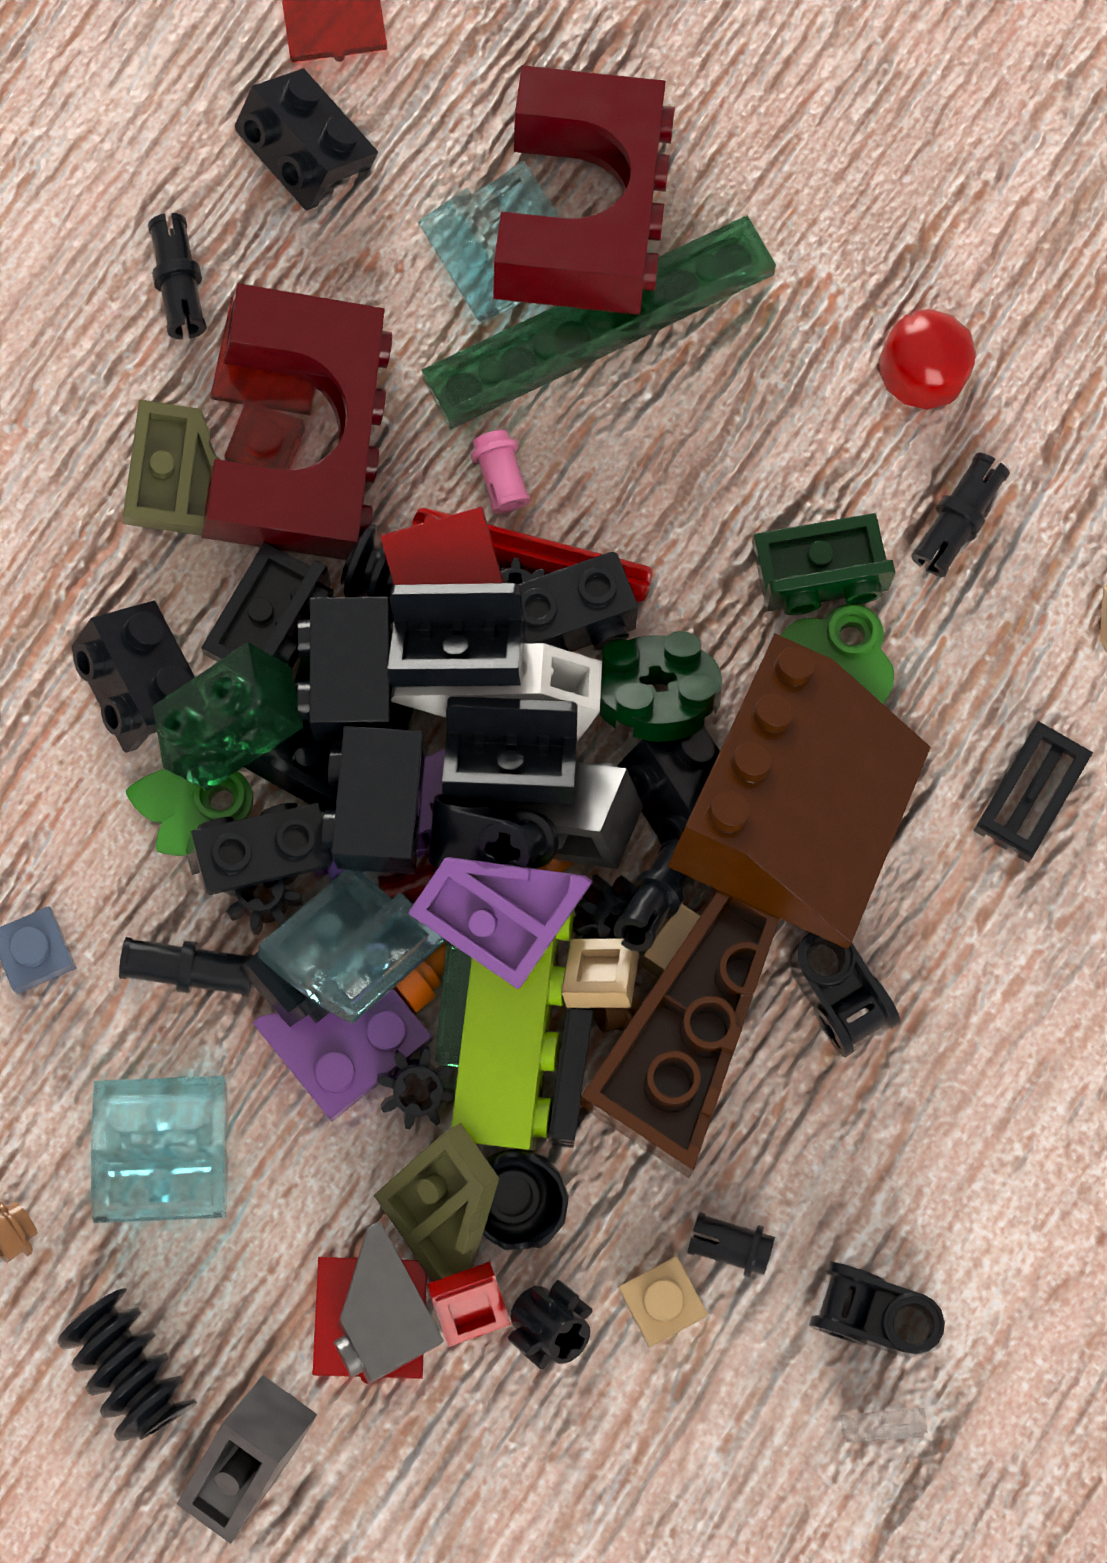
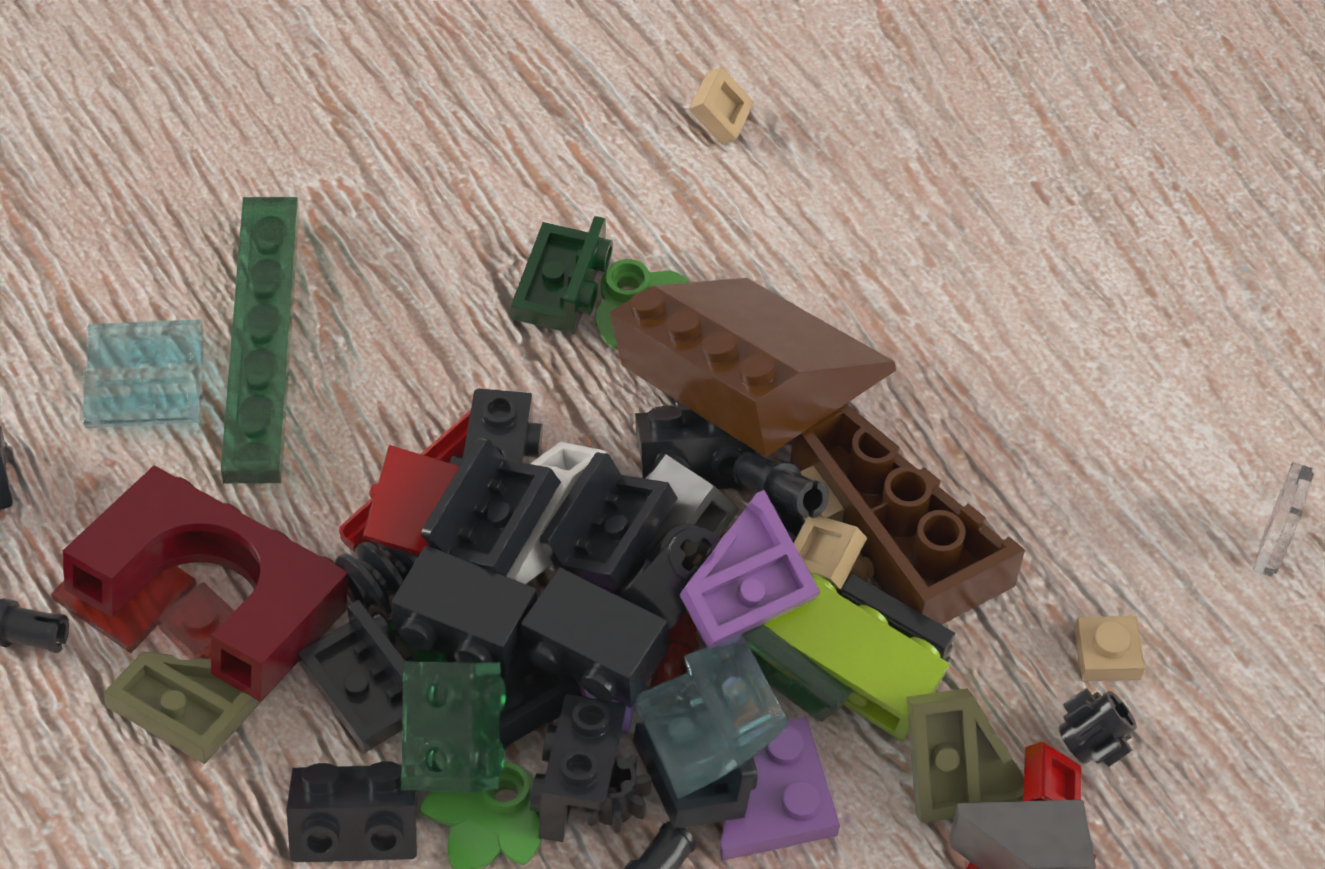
camera: 65 degrees left, 20 degrees down
(410, 1104) = (847, 741): black gear -> none
(500, 470) = (343, 458): bright pink pin -> none
(527, 1201) = (996, 687): black hair -> none
(599, 257) = (116, 242): dark red arch -> none
(669, 660) = (602, 413): dark green plate -> none
(736, 1244) = (1093, 567): black pin -> none
(843, 995) = (917, 410): black piece -> none
(873, 1311) = (1183, 504): black piece -> none
(927, 359) = (435, 143): red hair -> none
(960, 514) = (574, 175): black pin -> none
(1007, 835) = (810, 235): black tile -> none

